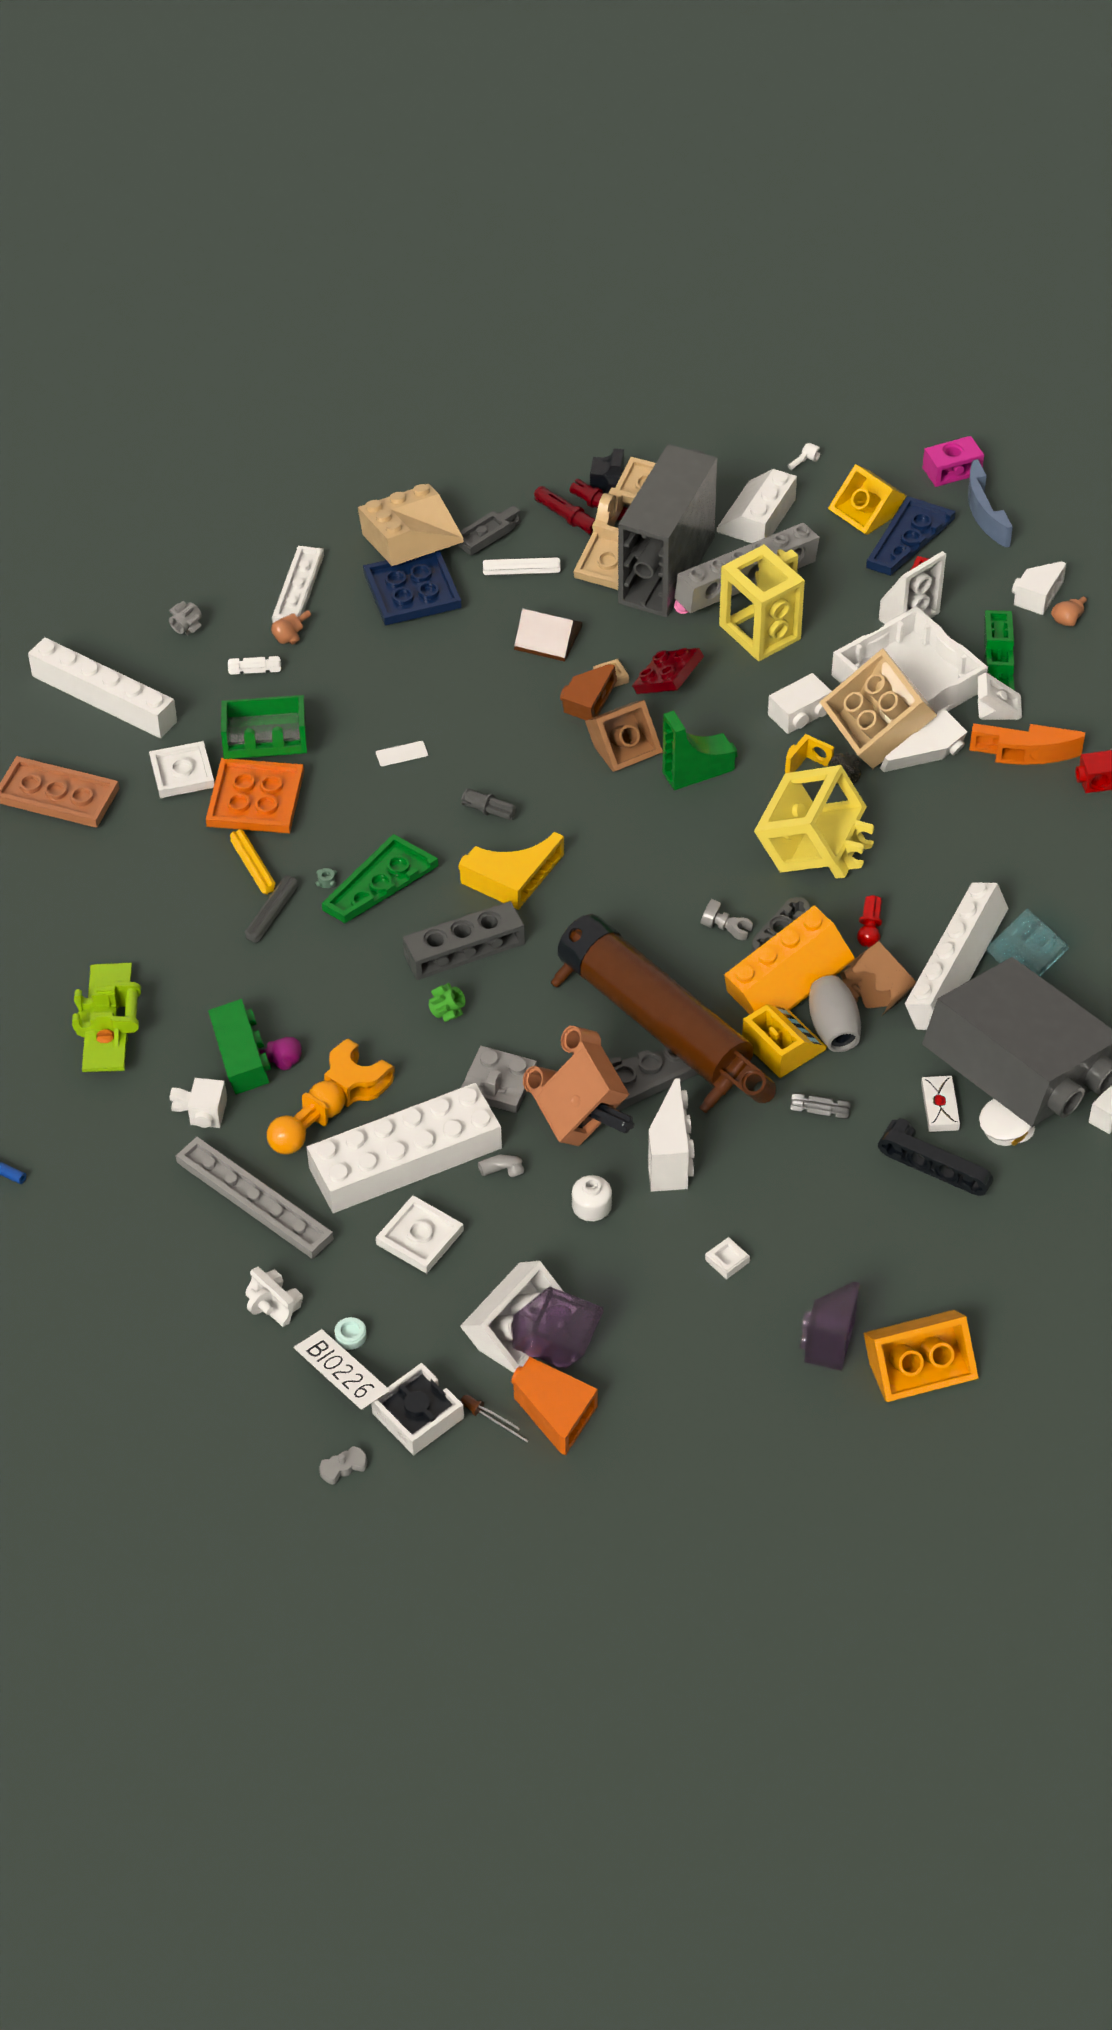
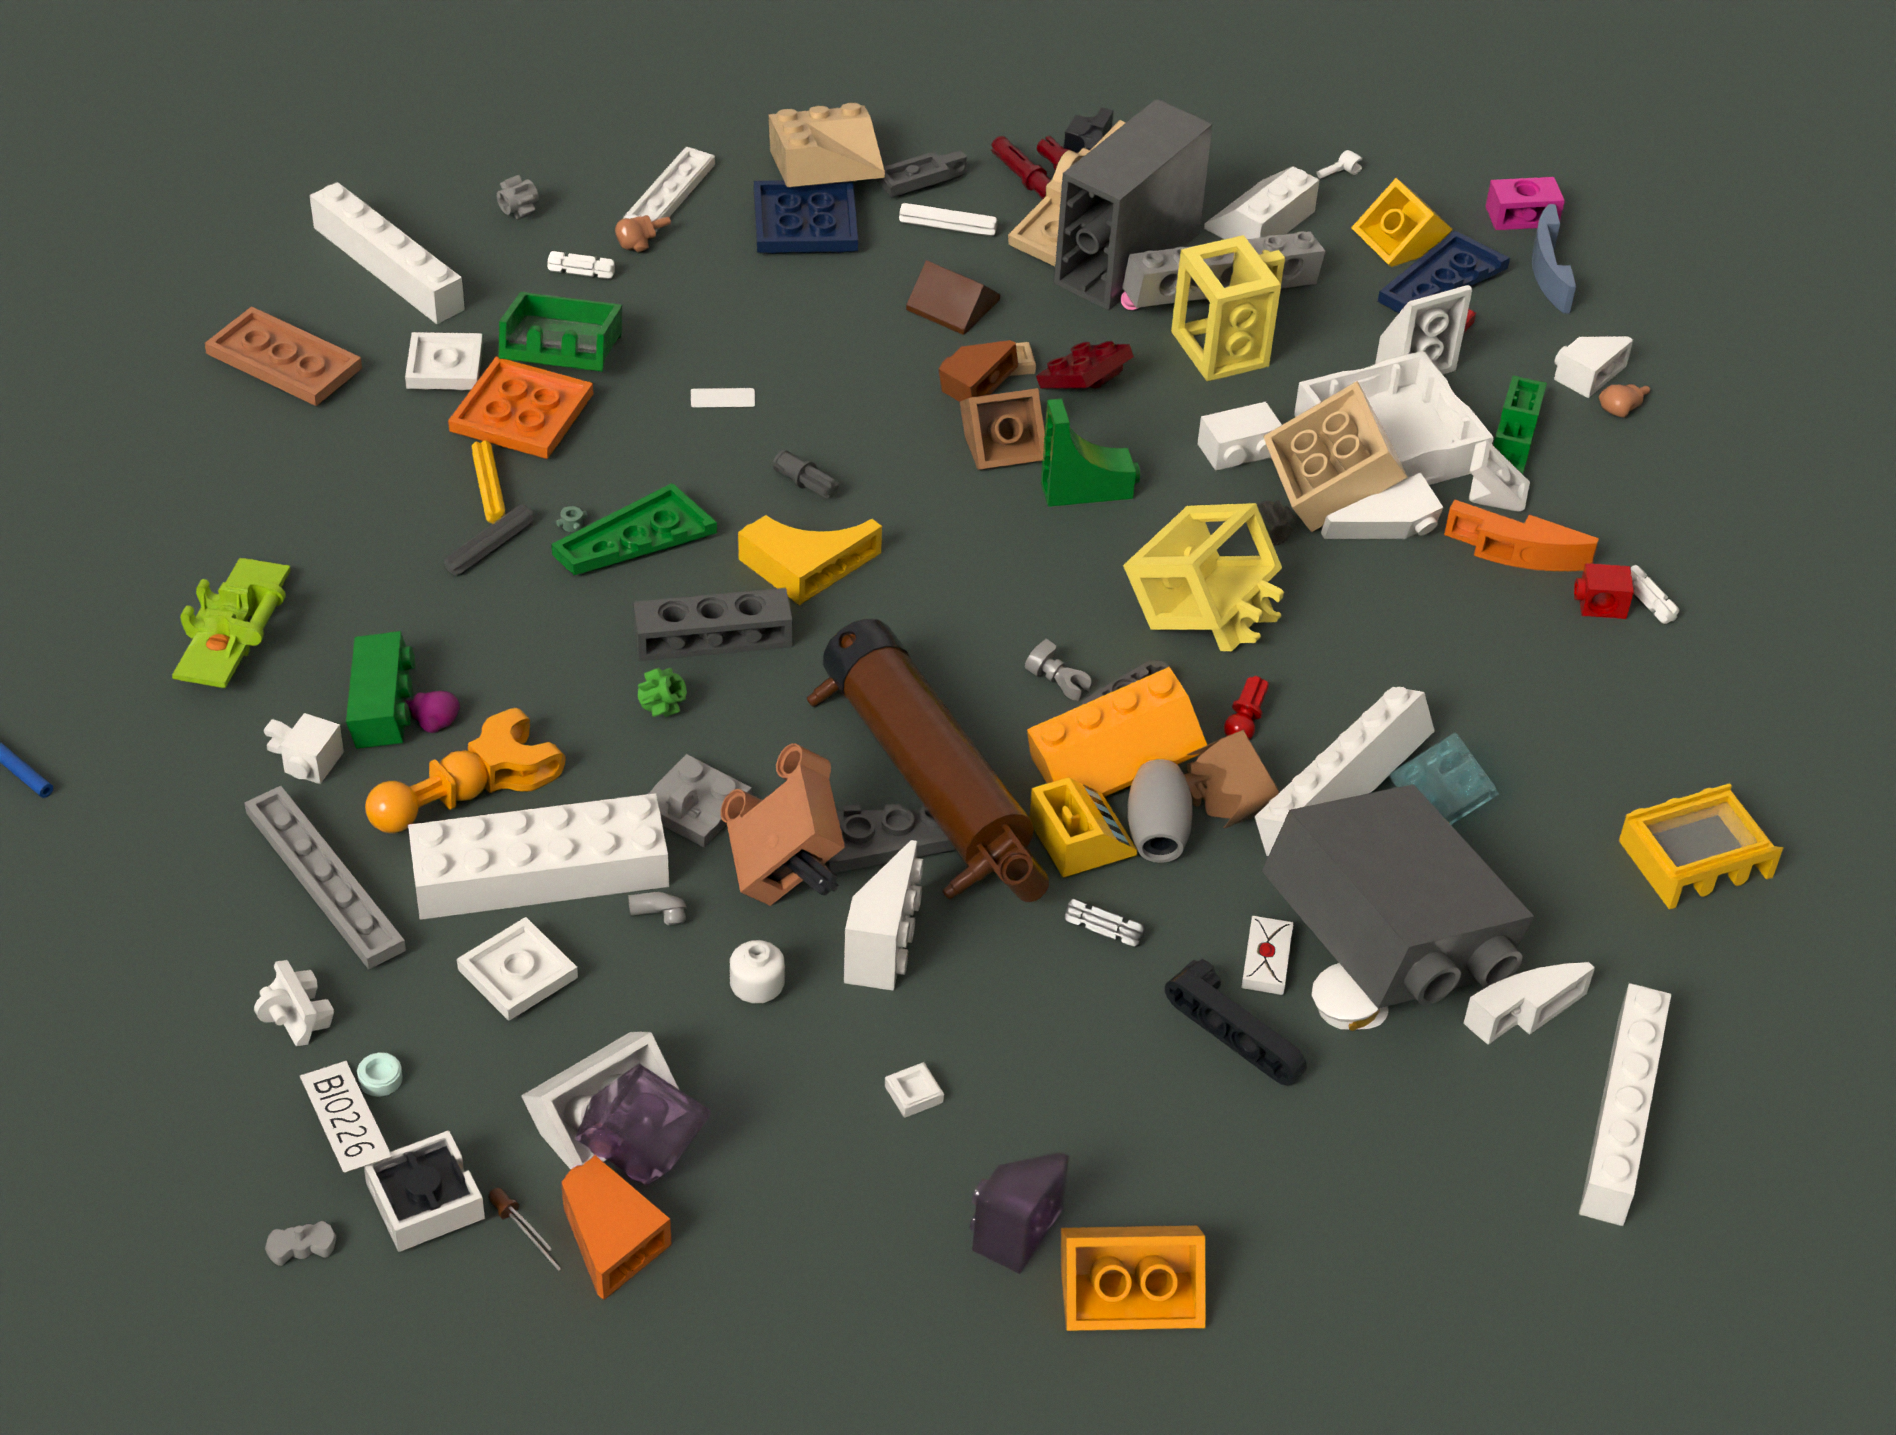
camera: 10 degrees right, 5 degrees down
(805, 749) = (1229, 489): yellow bracket -> none

